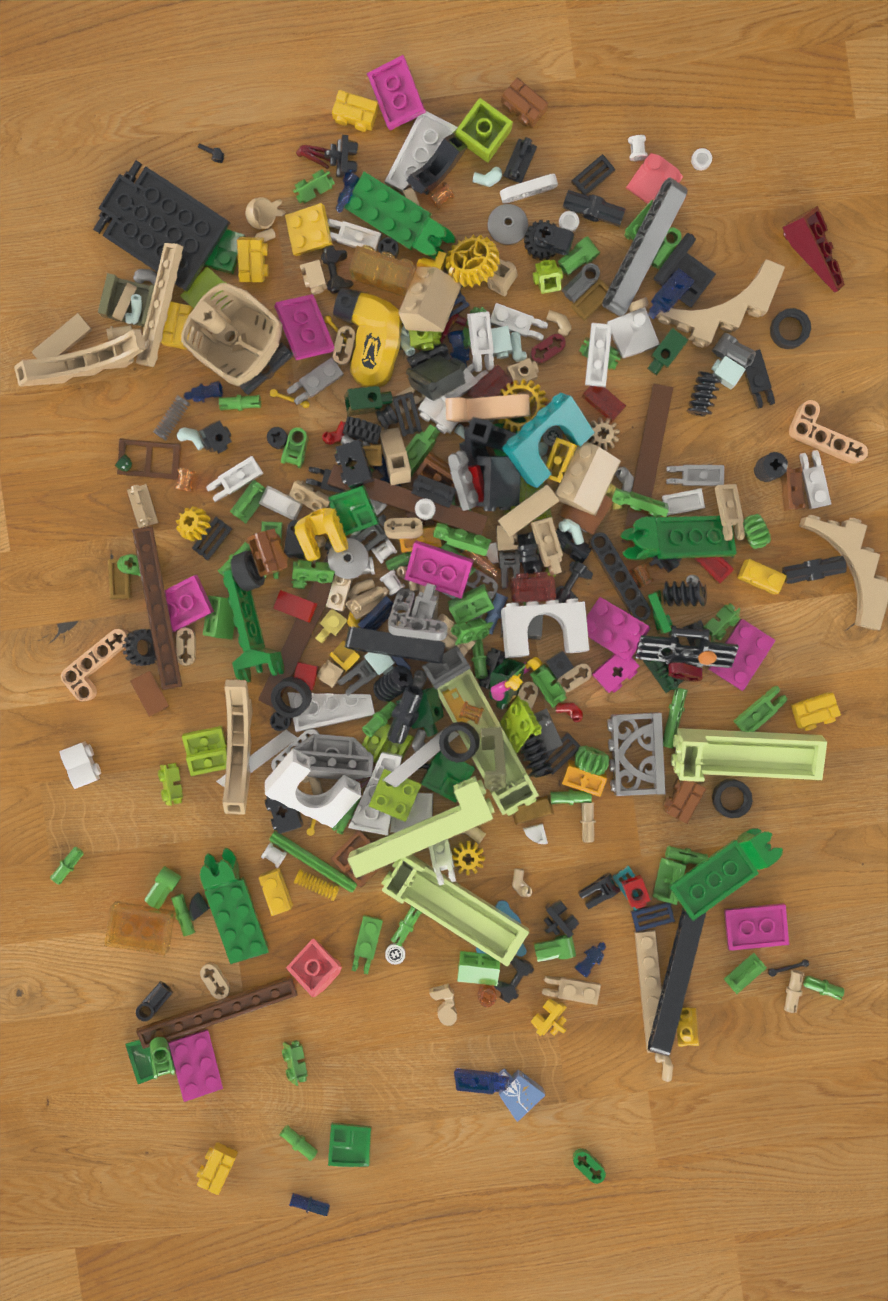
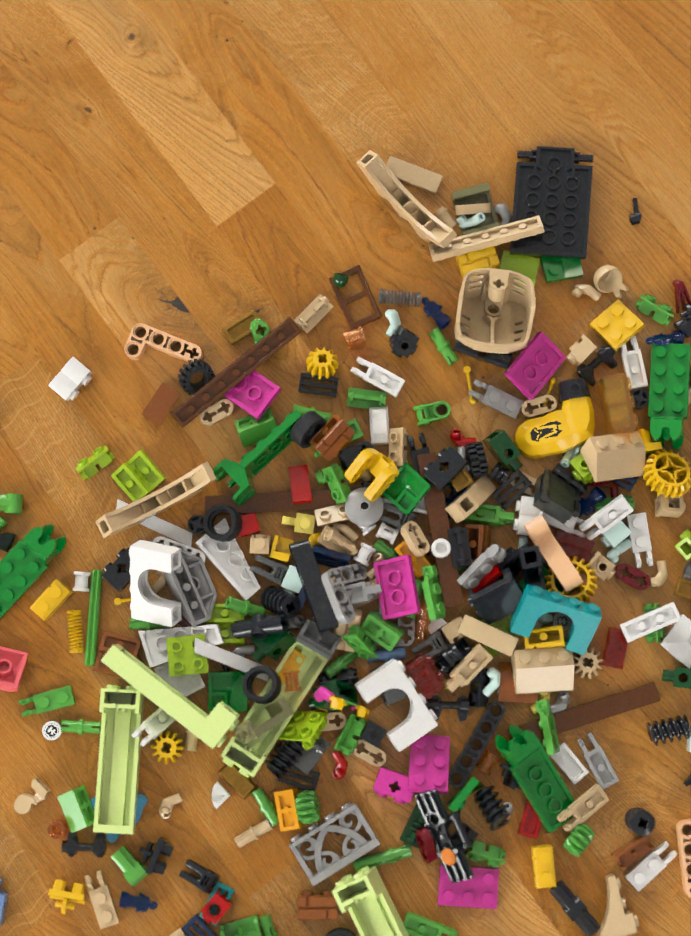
camera: 60 degrees right, 5 degrees down
(251, 259) = (566, 292): yellow brick -> none
(280, 440) = (431, 396): black wheel -> none

